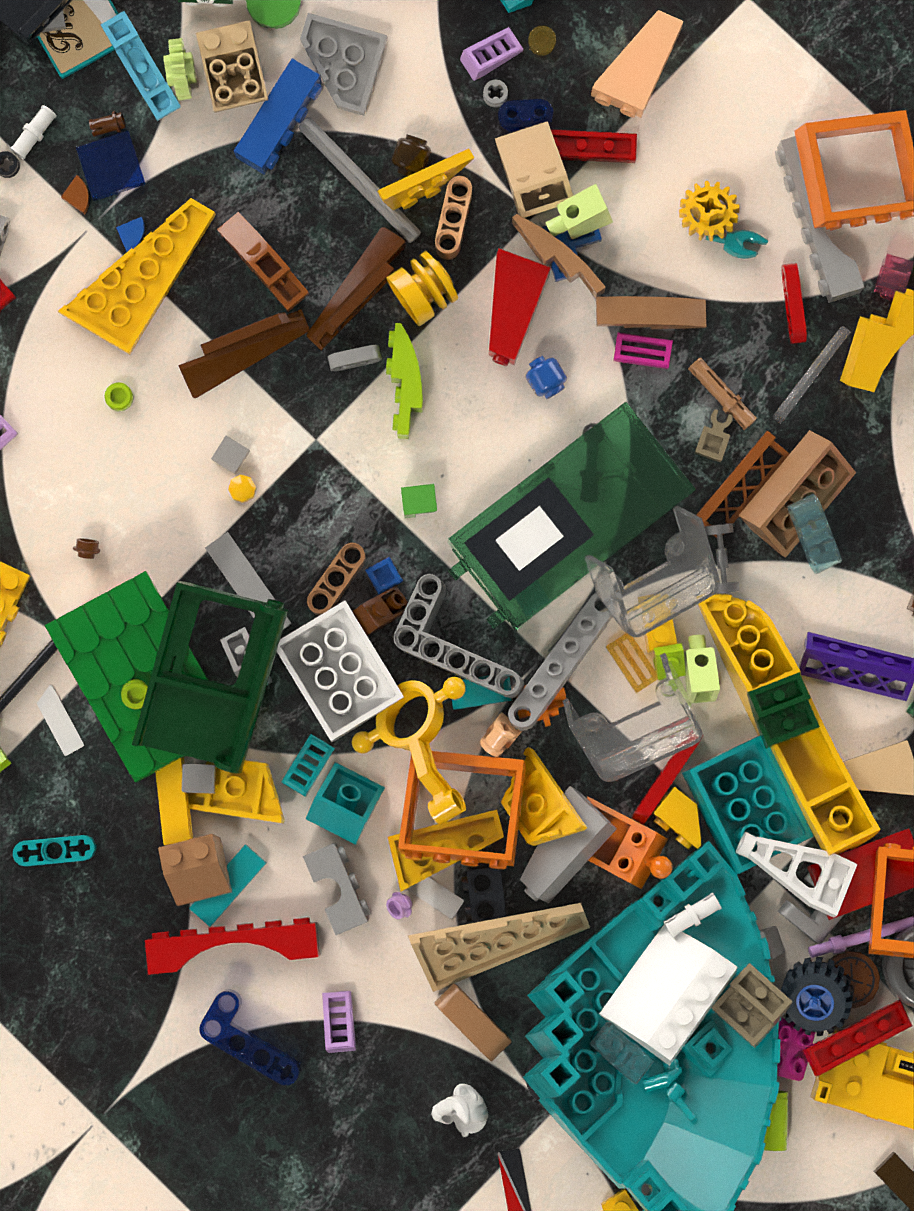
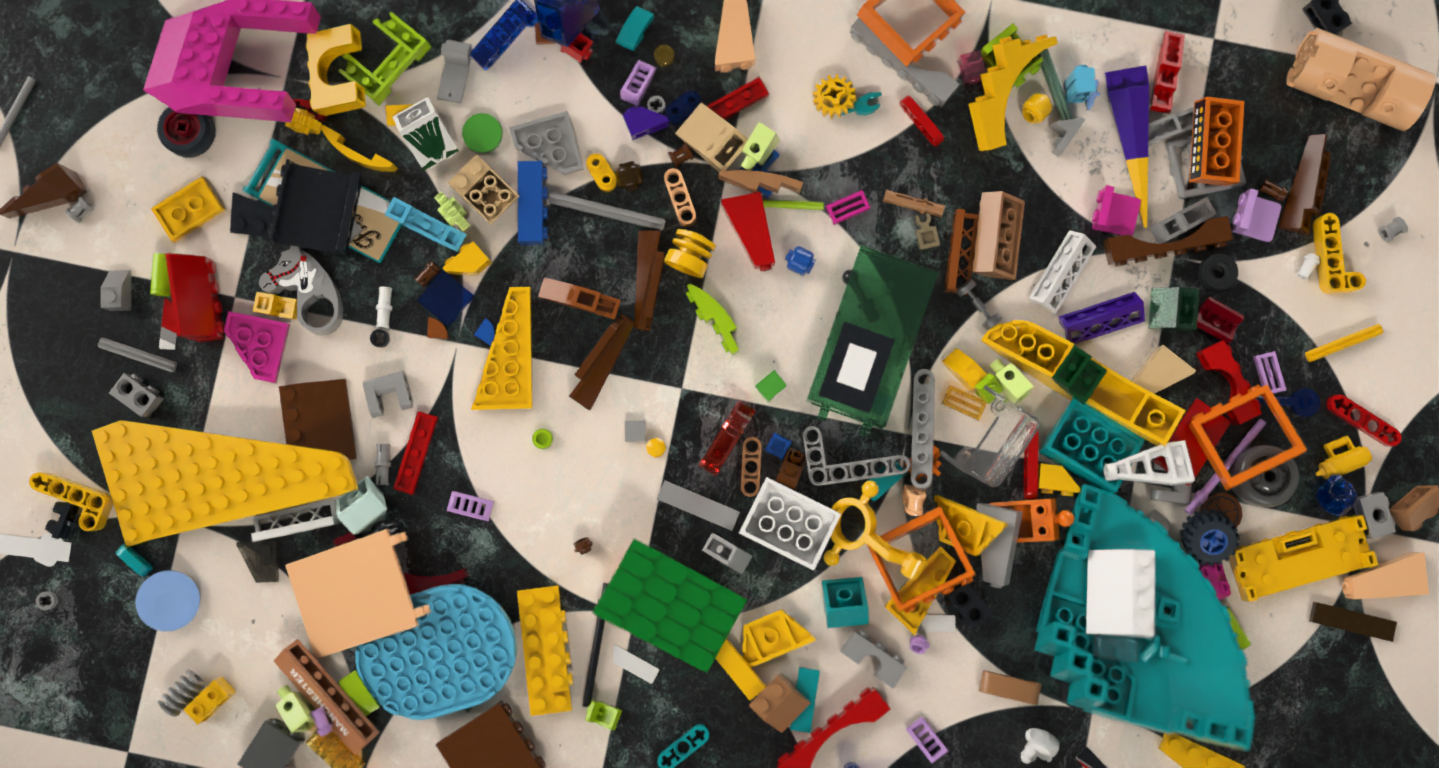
camera: 35 degrees left, 0 degrees up
(134, 693) = (675, 619): lime tile -> none
(163, 139) = (468, 262): none -> yellow slope
(198, 778) = (745, 645): light grey slope -> none
(202, 715) = (724, 605): dark green piece -> none
(304, 790) = (806, 611): teal slope -> none
(329, 528) = (727, 438): none -> clear red arch
(354, 357) = (674, 322): light grey beam -> none
(382, 130) = (600, 172): none -> yellow plate
(424, 182) = (650, 186): yellow wing -> none
(467, 103) = (643, 121): none -> dark purple slope
(472, 948) = (982, 642): tan wing -> none
(485, 174) = (677, 161): none -> reddish brown bush
(576, 304) = (793, 204): none -> lime bar
(651, 312) = (838, 181): medium nougat slope -> none
(666, 590) = (959, 343): clear windscreen -> none
(692, 915) = (1103, 535): white pin -> none
(752, 1005) = (1177, 568): dark tan slope -> none
(811, 374) = (960, 158): clear tile -> none
(814, 533) = (1026, 254): clear light blue beam -> none
(845, 577) = (1060, 269): none -> white fence
(857, 1037) = (1251, 546): red tile -> none

